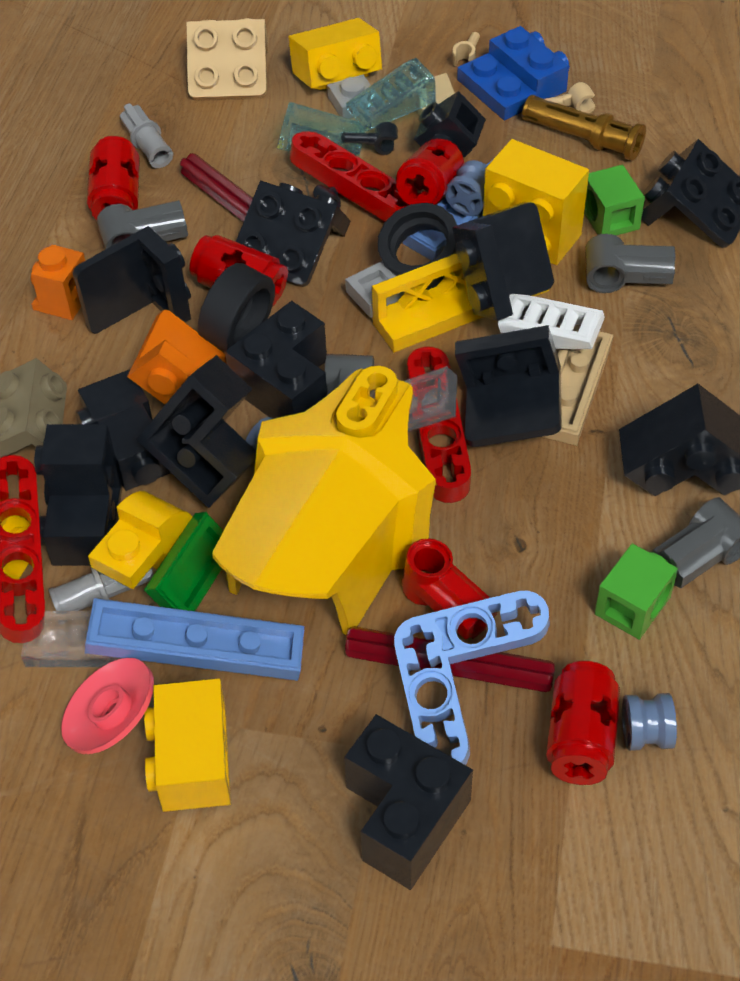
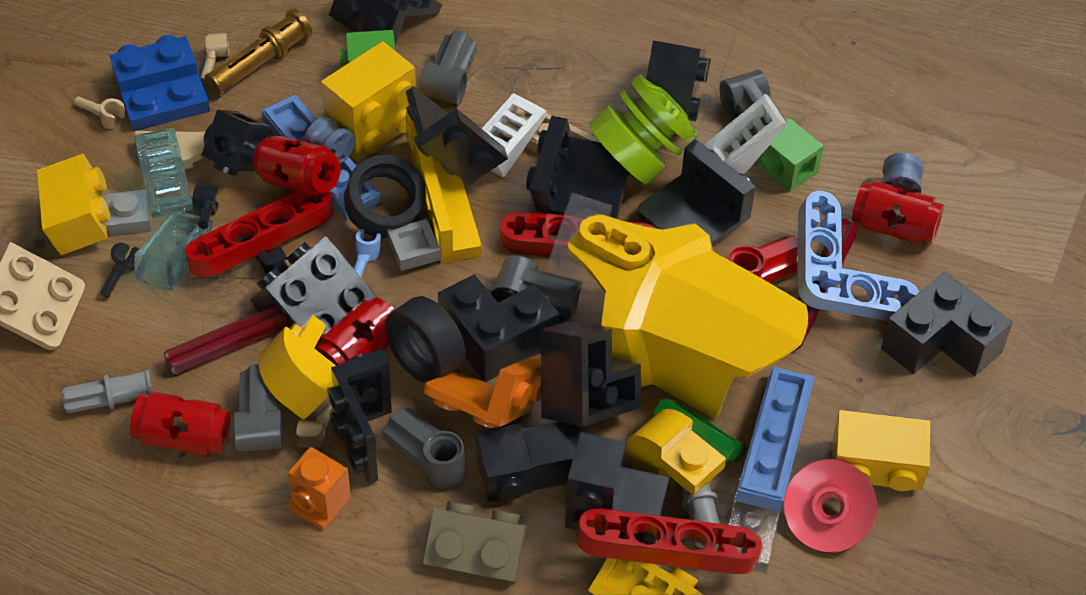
camera: 80 degrees left, 0 degrees up
(117, 351) = (427, 448): none -> dark grey piece
(181, 221) = (296, 370): none -> yellow brick
(296, 96) = (118, 255): none -> black hand
(365, 258) = (366, 251): none -> light blue hand
(517, 513) = (703, 194): none -> black bracket
(581, 420) = (643, 129): none -> lime wheel
(619, 527) = (729, 137): none -> white slope

